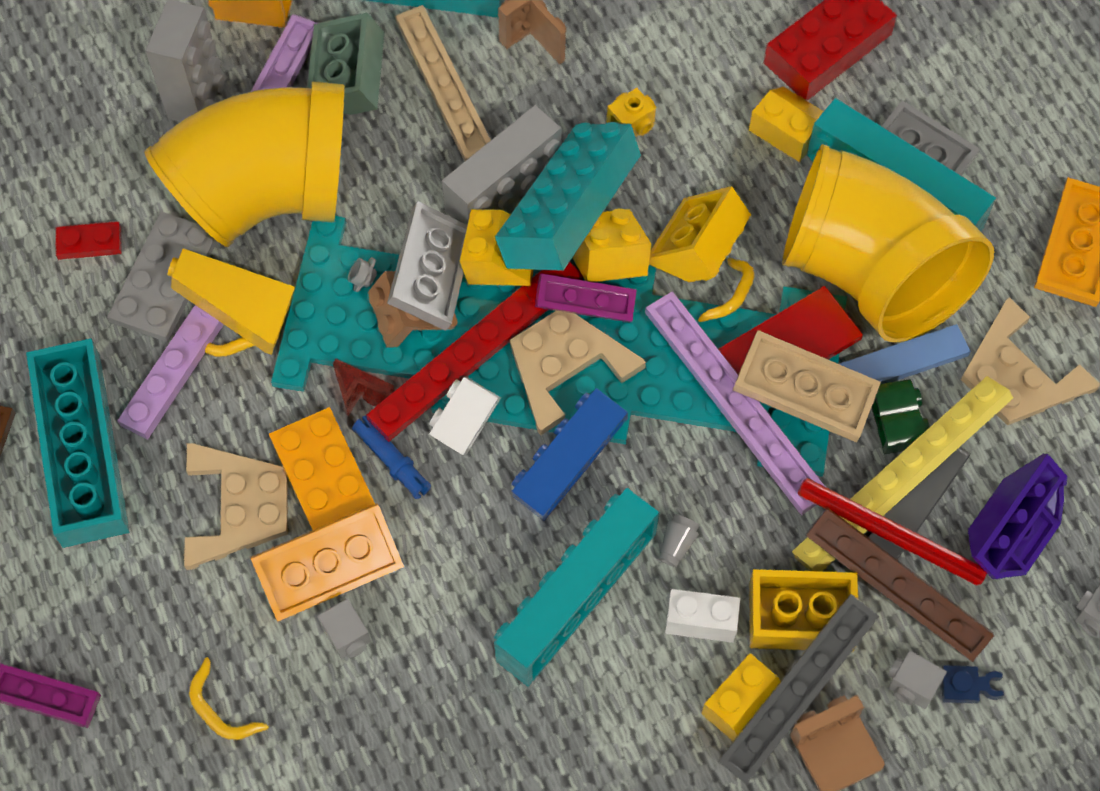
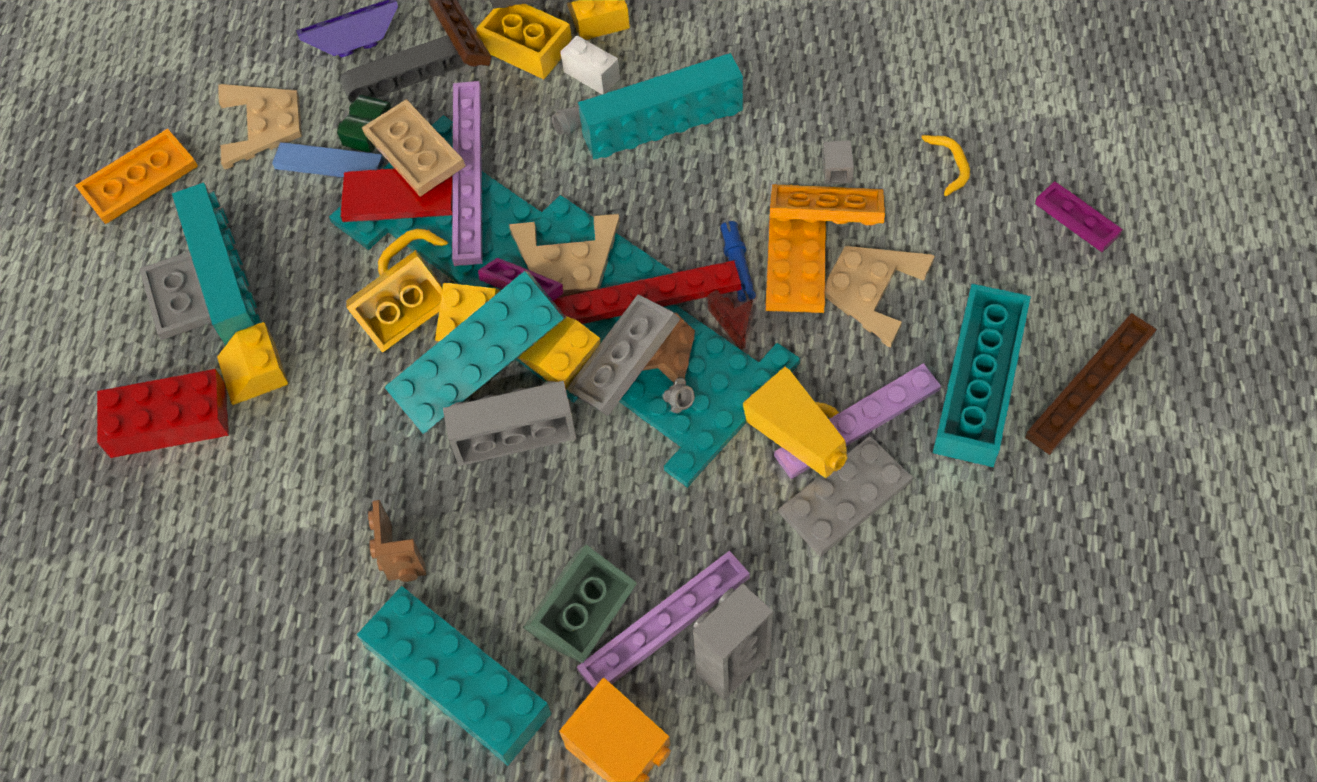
camera: 145 degrees left, 5 degrees down
(88, 240) = (899, 562): red plate -> none
(255, 158) = (714, 500): yellow cylinder -> none
(443, 81) = (502, 551): tan plate -> none
(464, 415) = (666, 250): white brick -> none
(569, 454) = (608, 191): blue brick -> none
(633, 109) = (370, 427): yellow brick -> none
(885, 244) = (280, 203): yellow cylinder -> none
(892, 531) = (435, 45): red axle -> none
(918, 460) = (389, 78): light yellow plate -> none

